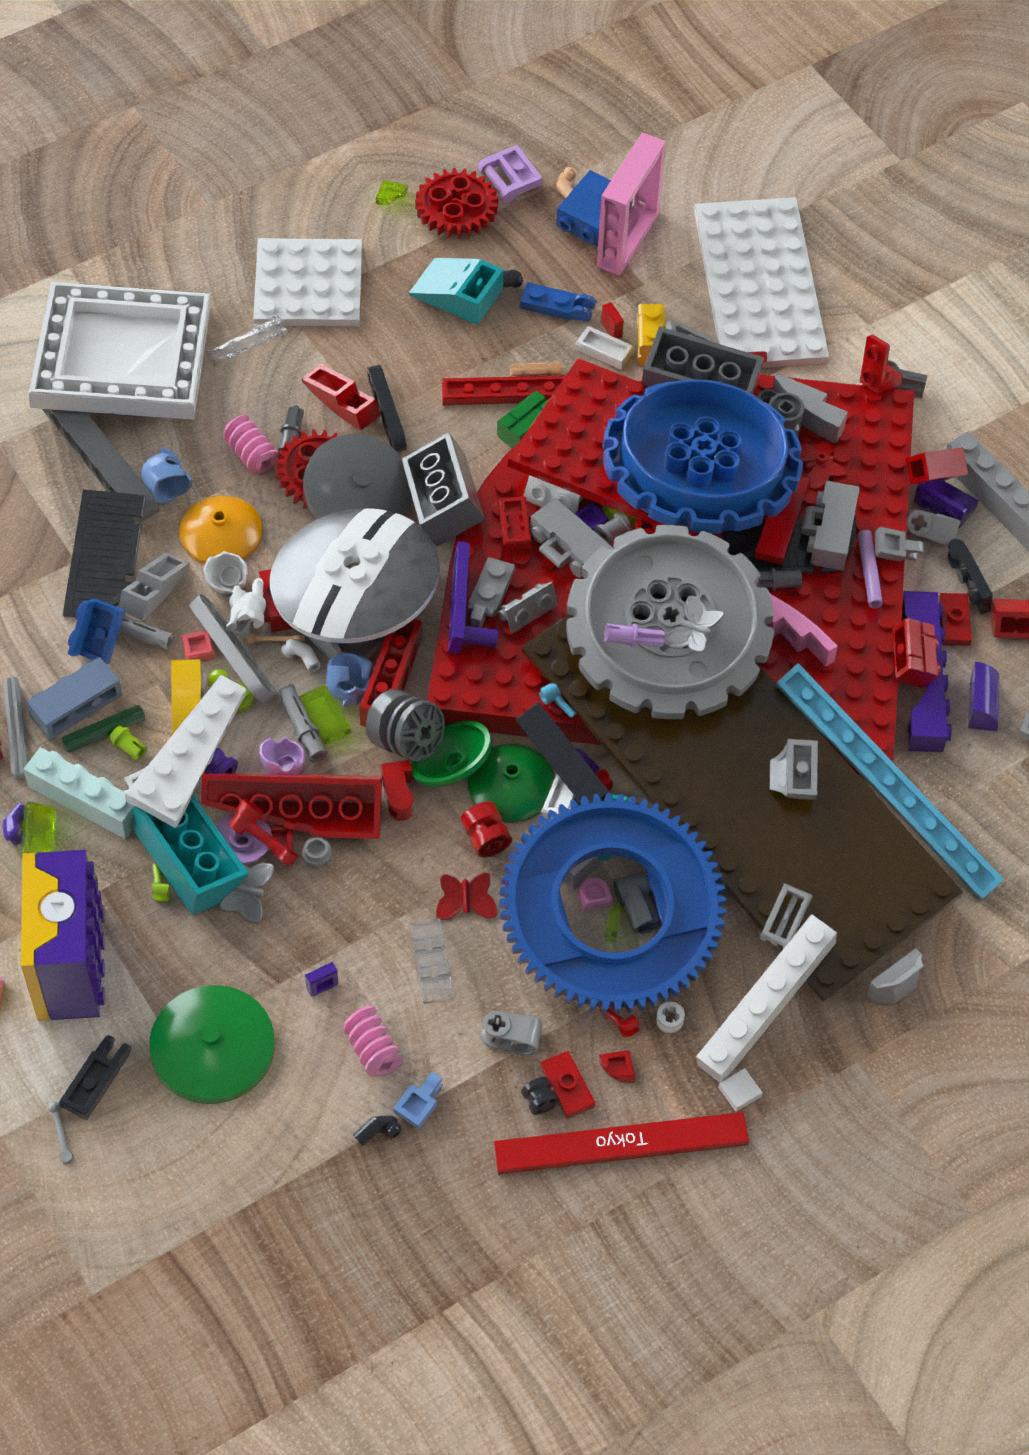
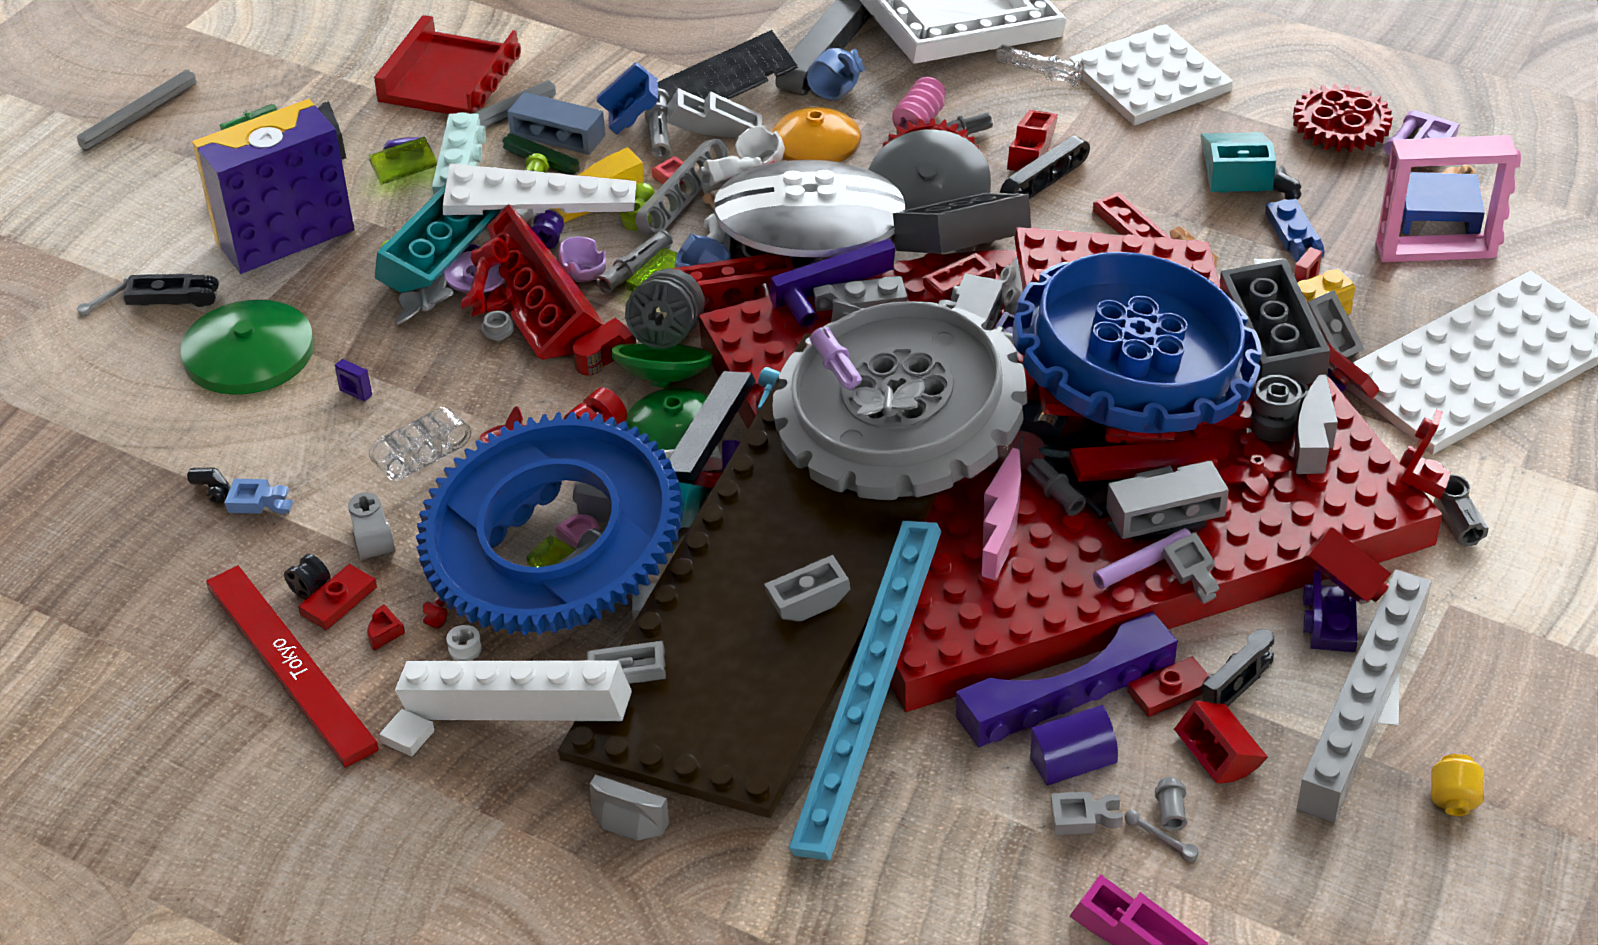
camera: 65 degrees right, 15 degrees down
(371, 1042) = (301, 435): bright pink piece -> none
(390, 191) = (1311, 76): clear neon green tile -> none
(915, 653) = (1060, 639): red brick -> none
(937, 526) = (1272, 606): light grey piece -> none

